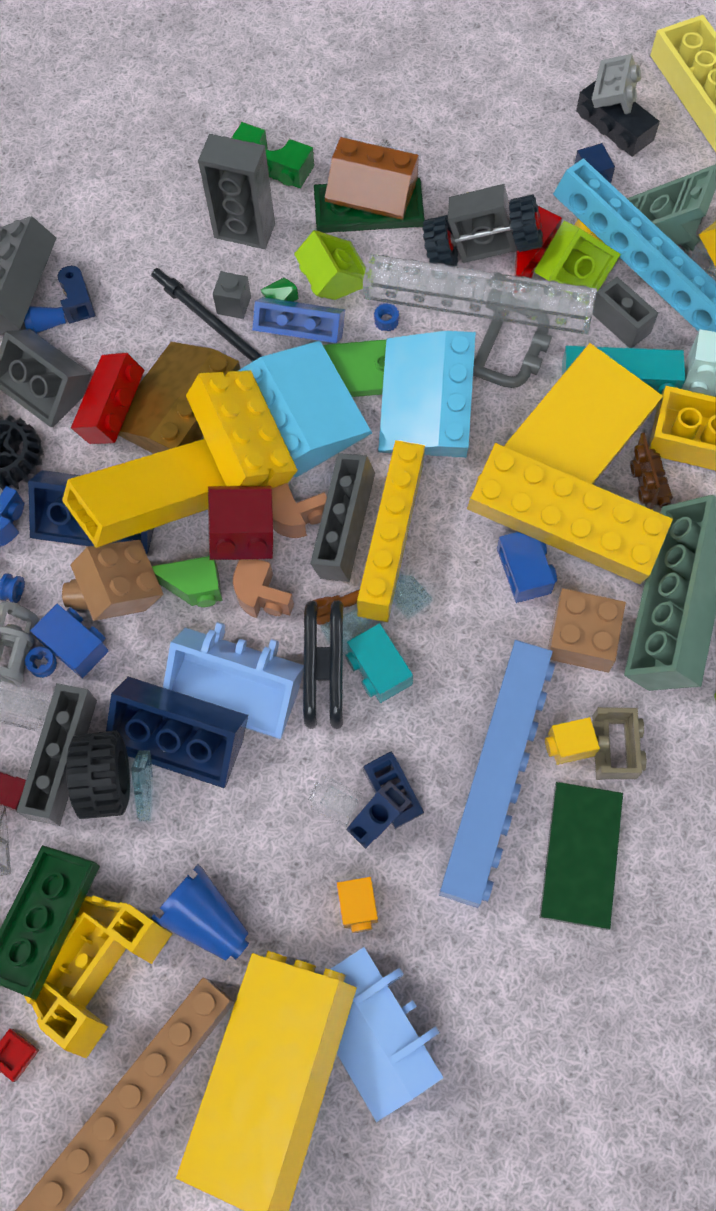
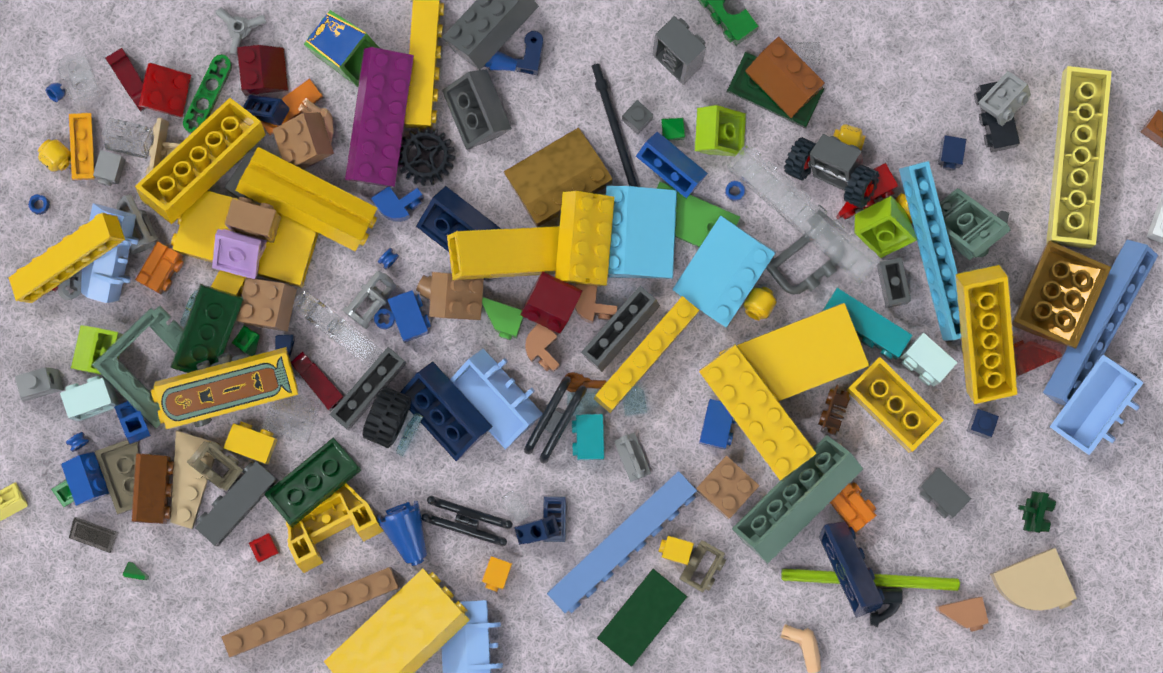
camera: 25 degrees right, 15 degrees up
(107, 398) = (513, 154): red brick -> none
(279, 857) = (466, 521): none -> black piece
(446, 660) = (632, 457): none -> light grey hinge
(489, 410) = (760, 303): none -> yellow head

